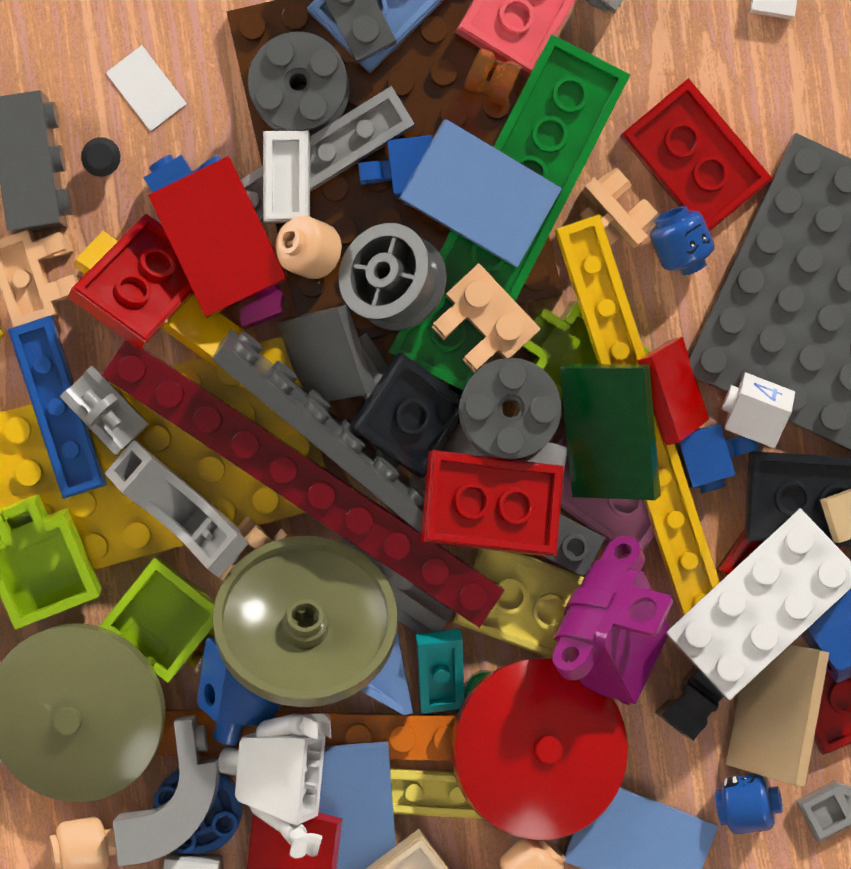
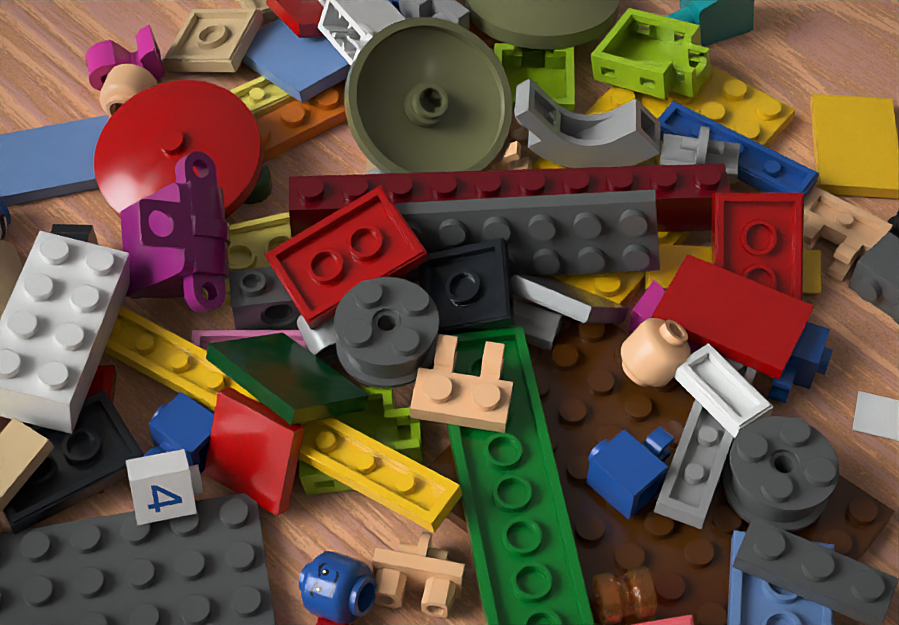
camera: 150 degrees right, 35 degrees down
(100, 156) = (874, 337): black piece -> none
(391, 683) = (329, 141): medium blue slope -> none
(392, 277) = (567, 368): dark grey wheel -> none
(440, 670) = (299, 159): teal plate -> none
(480, 193) = (551, 476): medium blue tile -> none

